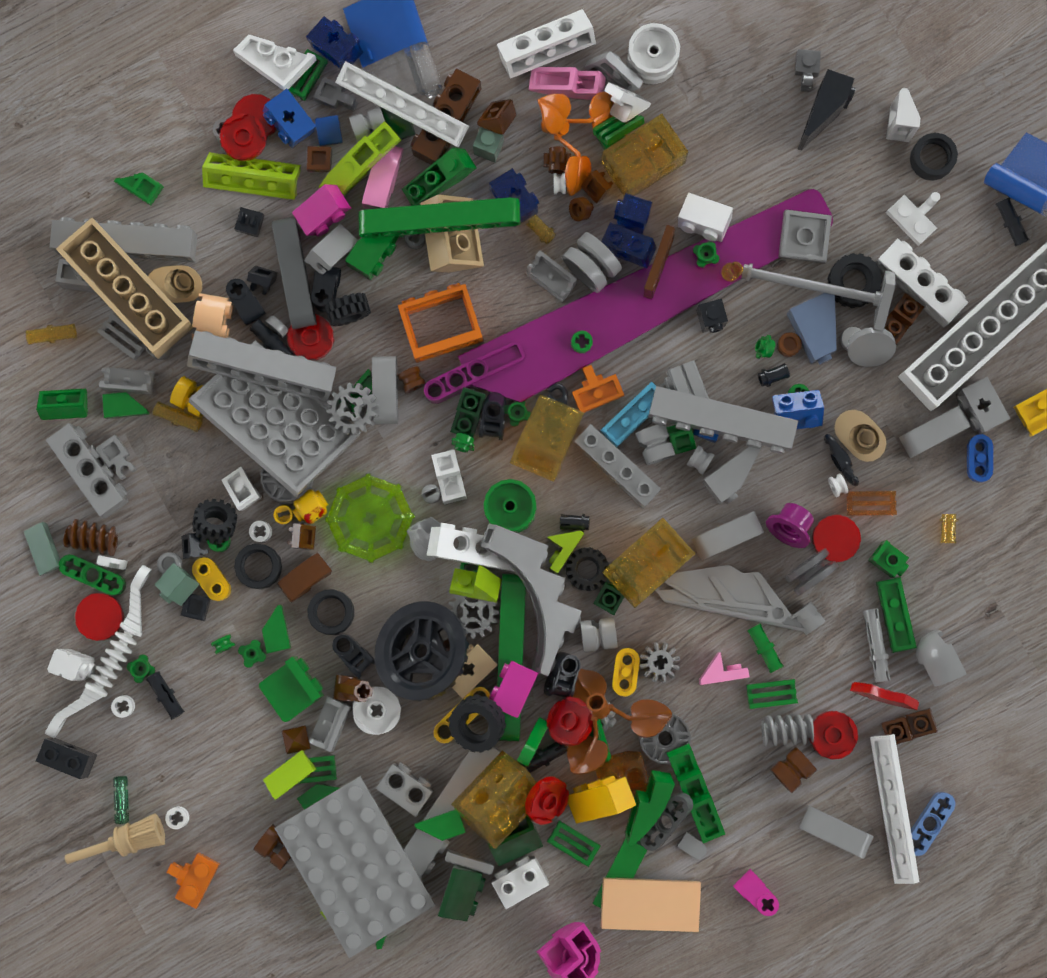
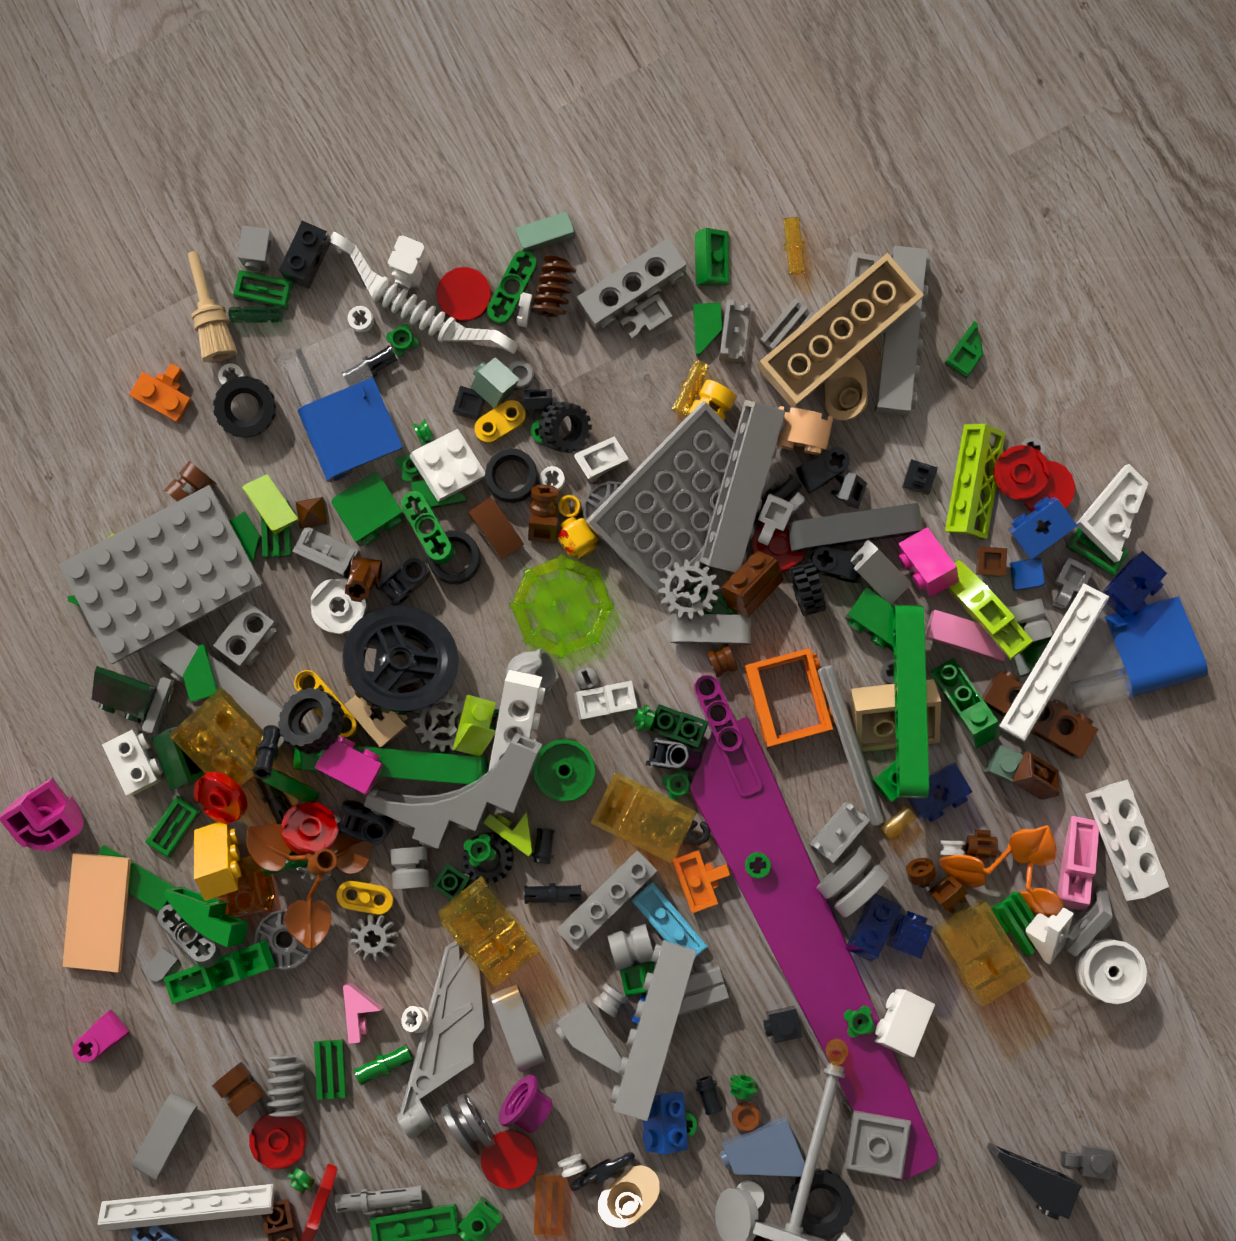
camera: 85 degrees right, 0 degrees up
(60, 803) = (255, 247): none -> light grey brick
(107, 797) = (285, 295): none -> green tile
(199, 720) = (338, 404): none -> door
(222, 808) = (223, 410): none -> black tyre
(250, 621) = (447, 465): none -> white plate
(279, 536) = (544, 500): none -> reddish brown wheel
(285, 338) = (774, 515): none -> light grey plate
(296, 635) = (443, 539): none -> green beam
(345, 355) = (752, 583): none -> reddish brown brick
(477, 269) = (851, 745): none -> light grey axle
(506, 759) = (266, 752): none -> black pin
(508, 240) = (884, 782): none -> green brick
(574, 572) = (476, 857): none -> green plate
(614, 512) = (552, 894): none -> black pin
(659, 262) = (851, 964): reddish brown tile -> none
(726, 629) = (408, 1019): none -> white bush
(866, 712) = (301, 1181): none -> green plate

